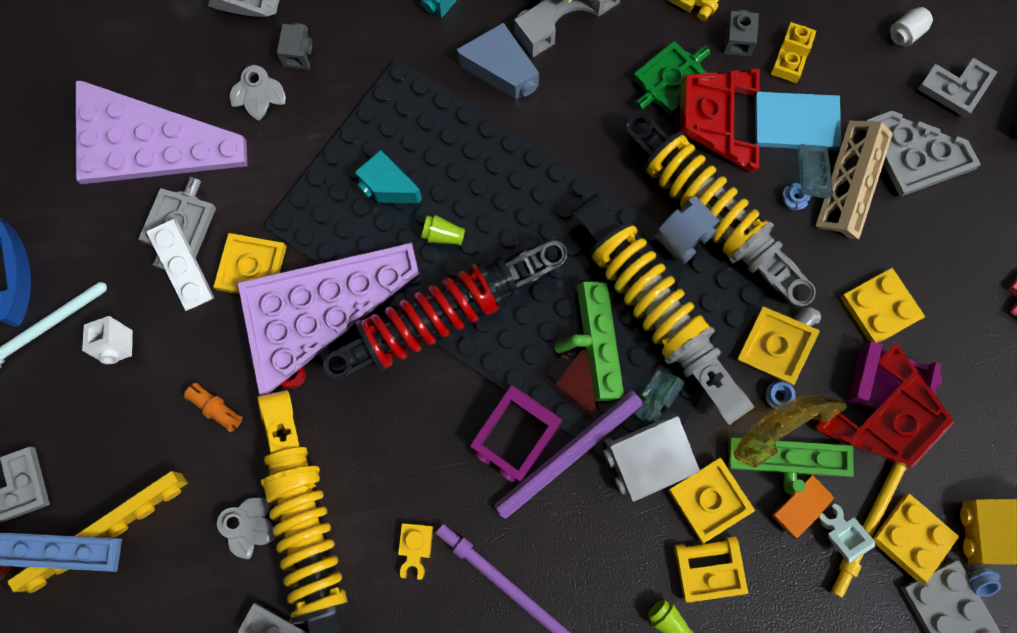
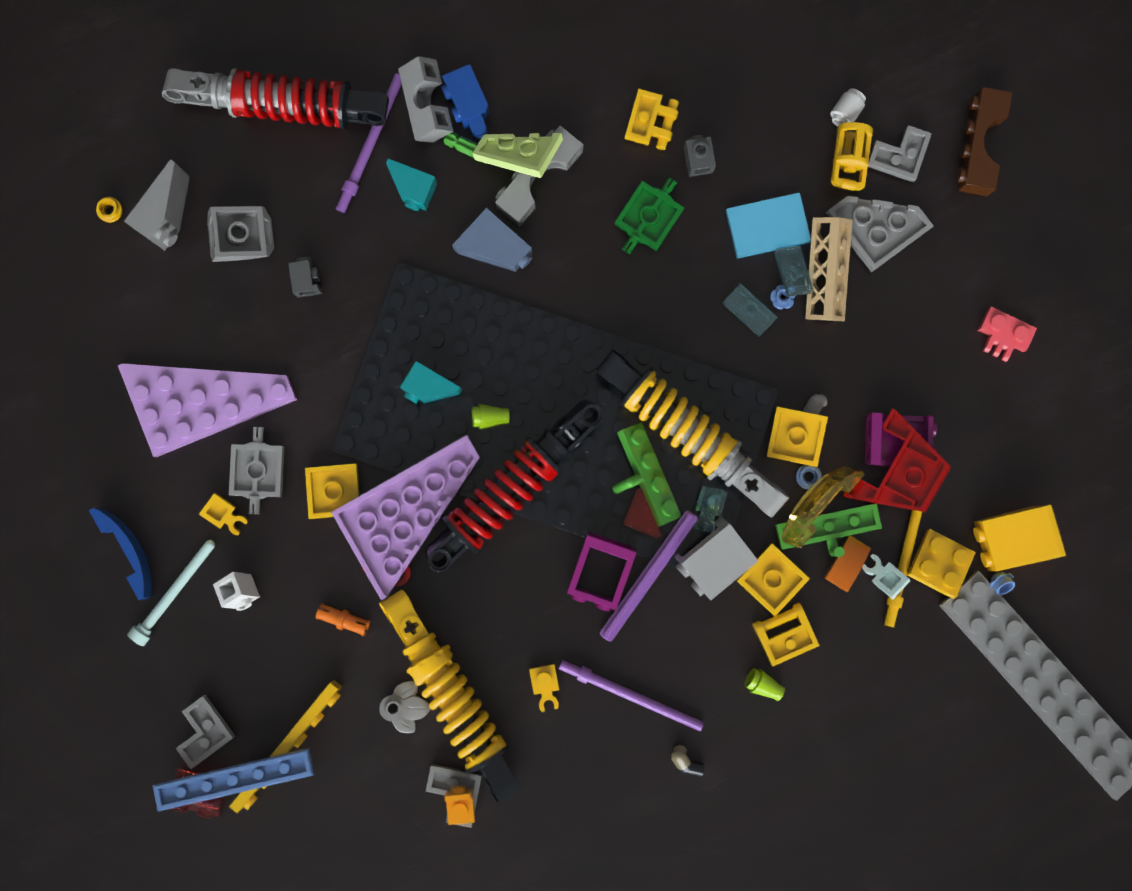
camera: 20 degrees left, 10 degrees up
(123, 256) = (220, 511): none -> yellow plate
(180, 264) = (274, 508): white plate -> none
(257, 95) = (284, 334): light grey plate -> none
(686, 229) = (698, 358): sand blue cylinder -> none
(688, 181) = (745, 346): piece -> none
(709, 113) = (690, 242): red wing -> none
(758, 197) = (749, 310): none -> clear light blue plate
(793, 52) = (750, 160): yellow slope -> none
(882, 306) = (876, 376): yellow plate -> none
(904, 77) = (851, 162): none -> yellow piece

